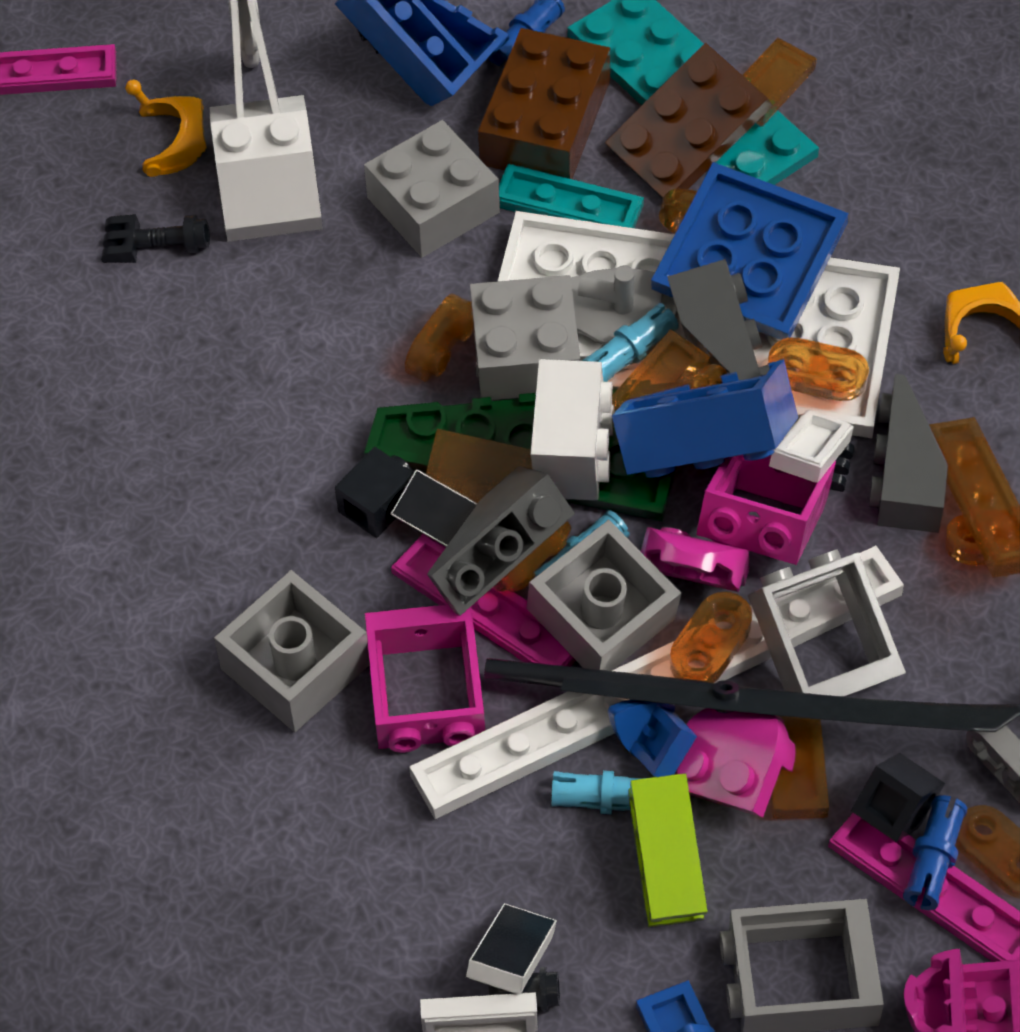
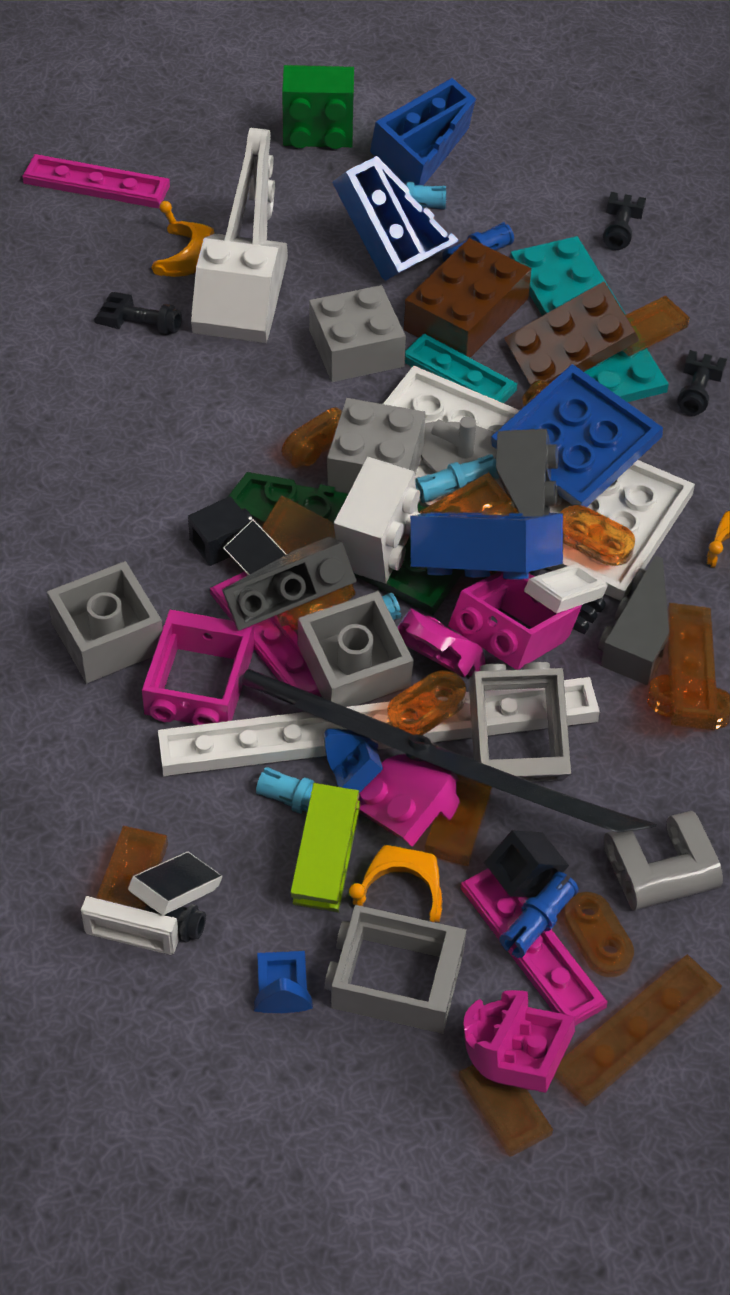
camera: 15 degrees right, 5 degrees down
(449, 942) = (133, 854): none -> clear orange plate
(773, 833) = (402, 860): none -> light orange helmet
(853, 158) = (694, 398): none -> black hinge

